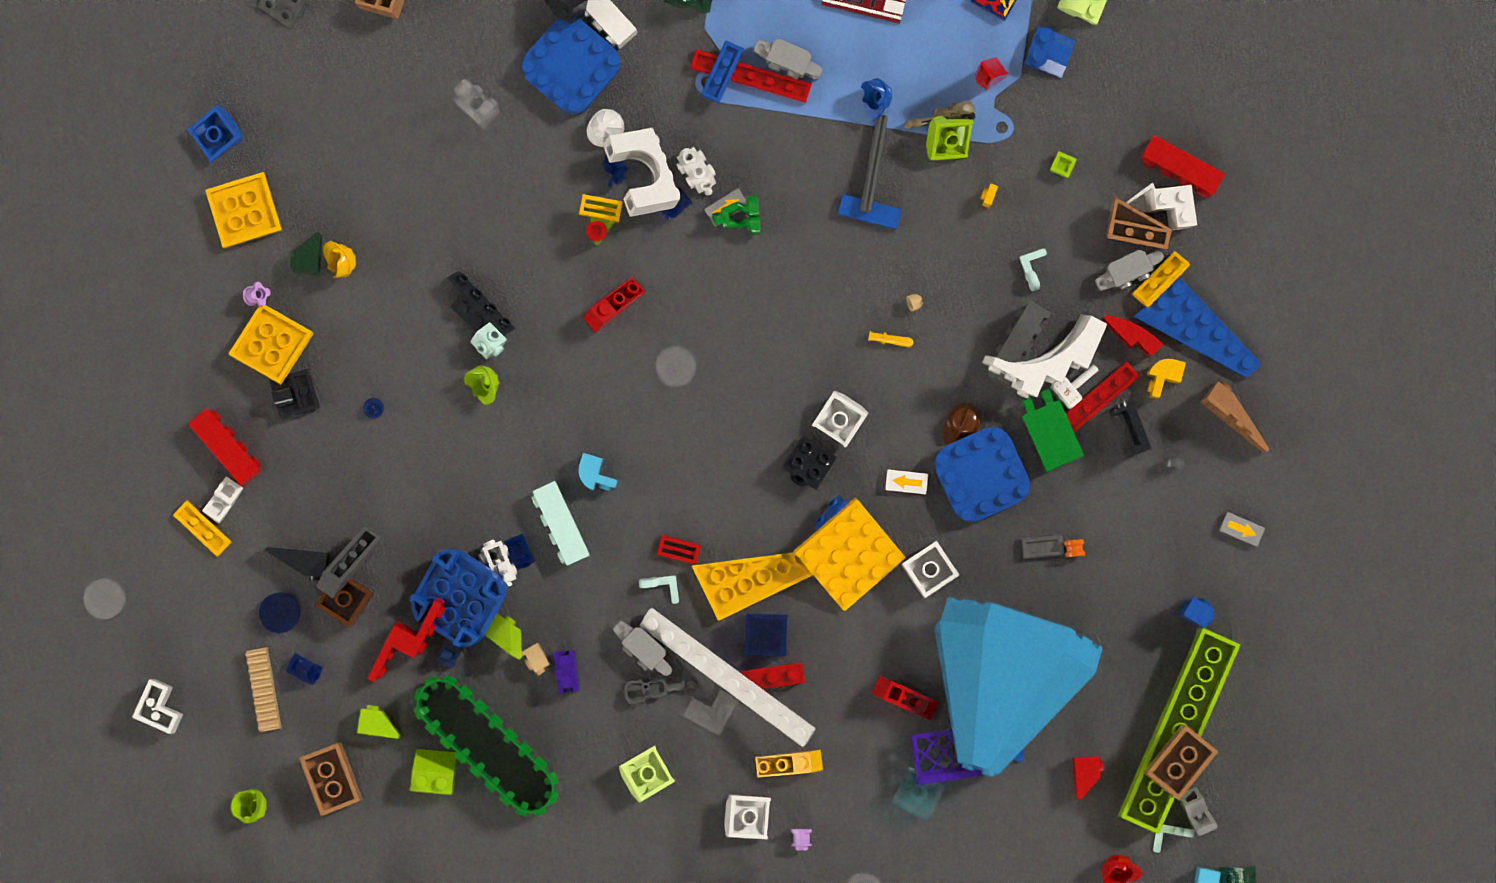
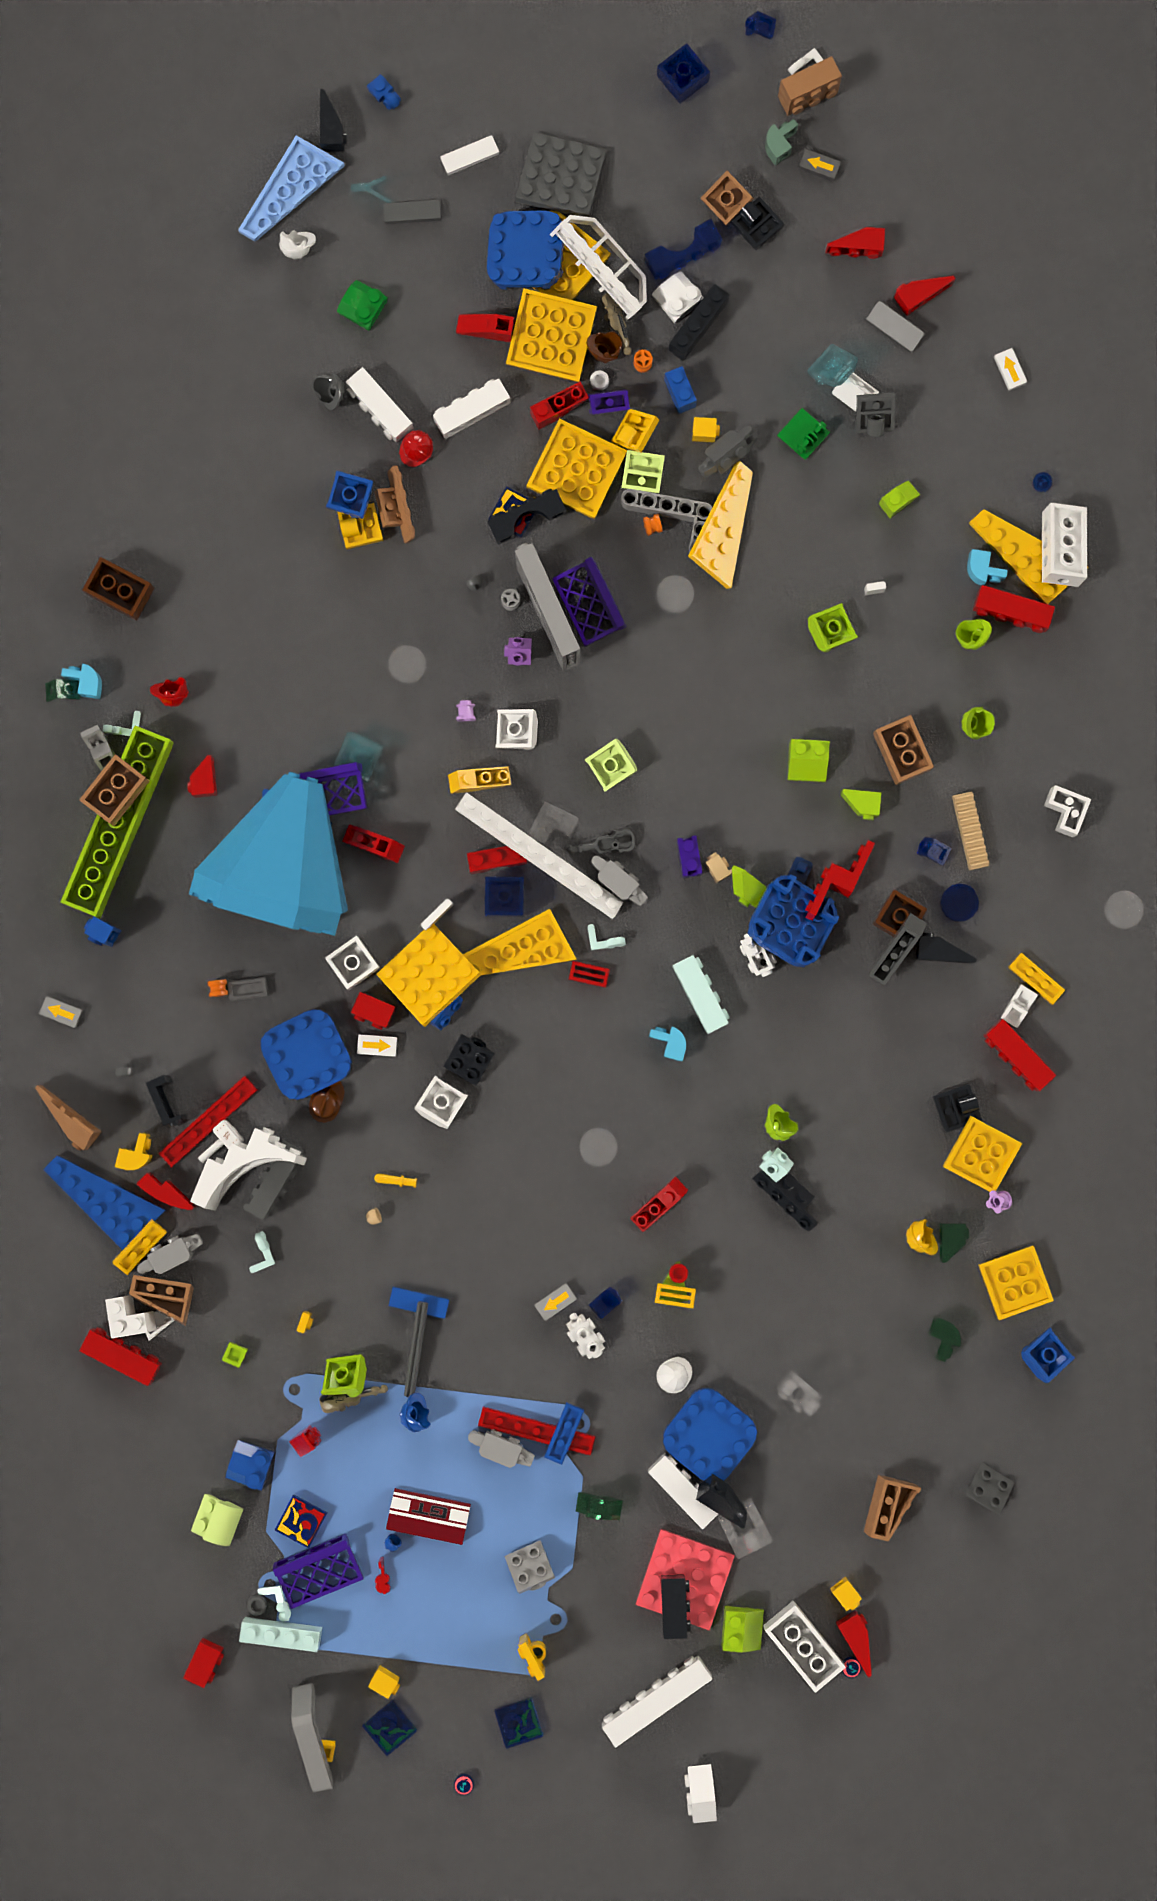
camera: 175 degrees left, 0 degrees up
(318, 159) = (948, 1334): none -> clear green brick
(373, 408) = (881, 1097): clear blue tile -> none
(462, 755) = (767, 763): green piece -> none
(519, 551) = (738, 966): clear blue bracket -> none
(617, 169) = (662, 1336): clear blue bracket -> none
(645, 147) = (635, 1356): white arch -> none
(751, 208) = (532, 1300): green piece -> none
(838, 619) = (437, 914): none -> white tile
(909, 519) = (374, 1010): none -> red brick
(1051, 432) = (241, 1096): green tile -> none

